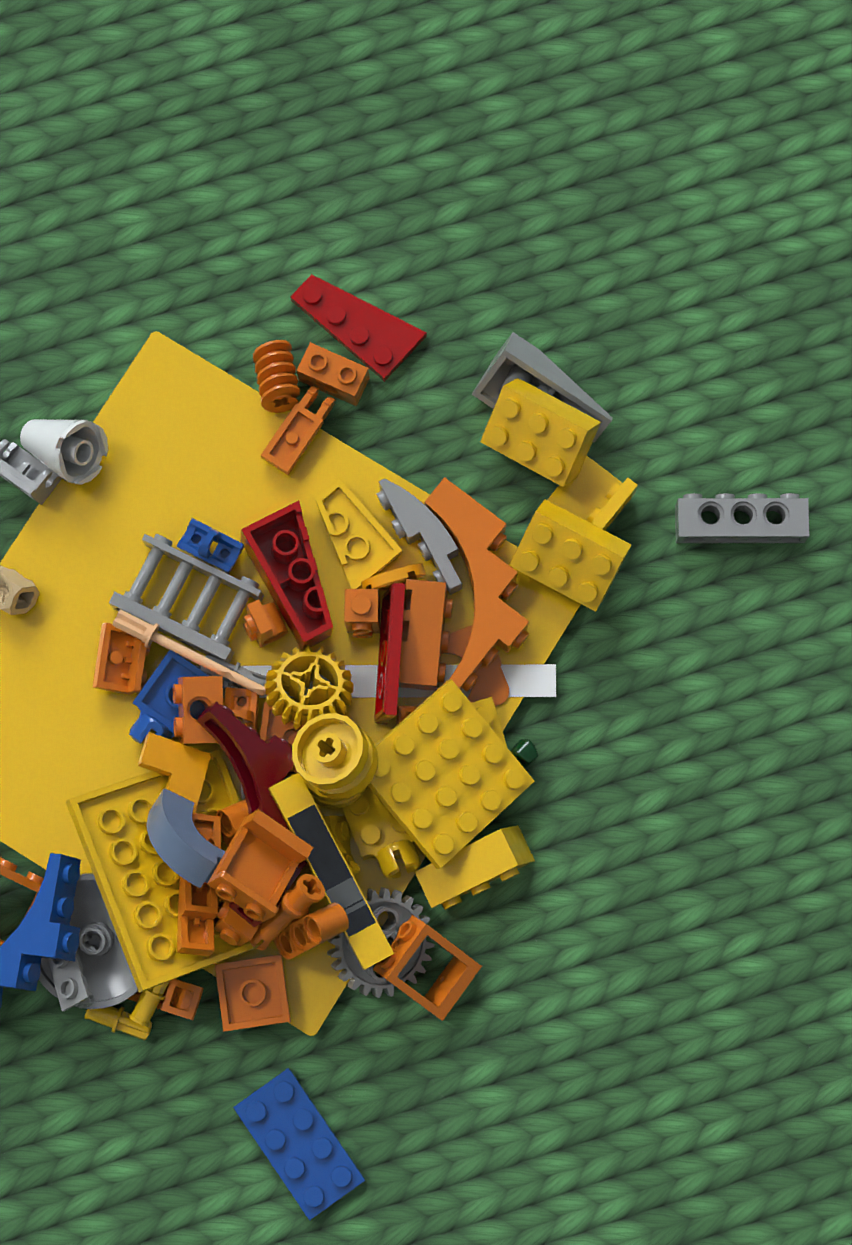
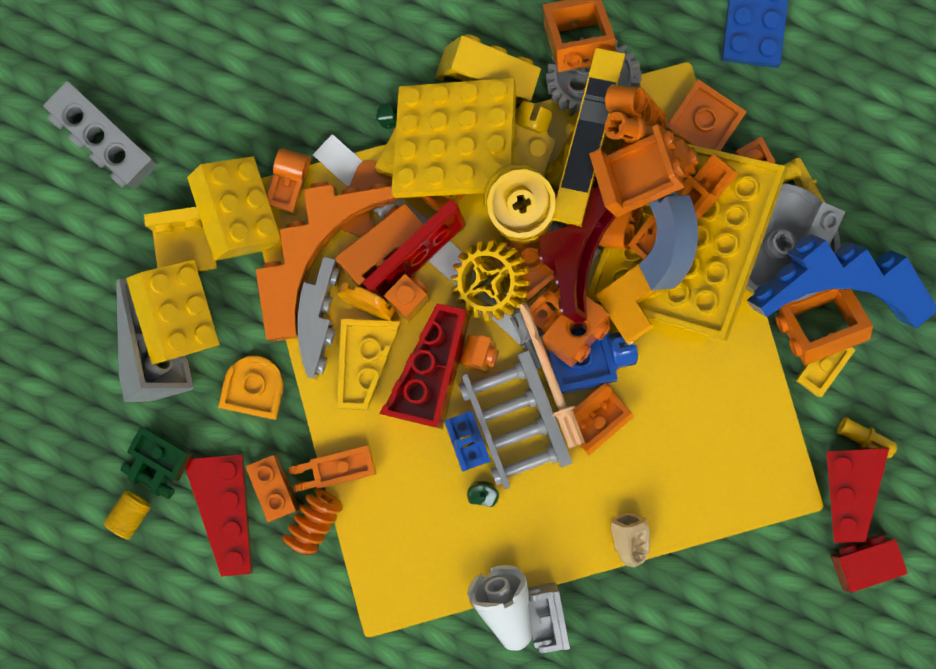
camera: 140 degrees left, 5 degrees up
(161, 519) = (483, 494): none -> dark green piece
(425, 438) = (253, 387): none -> light orange tile
(428, 253) = (127, 515): none -> yellow piece
(446, 319) = (159, 454): none -> dark green plate
(553, 622) = (288, 179): none -> orange plate

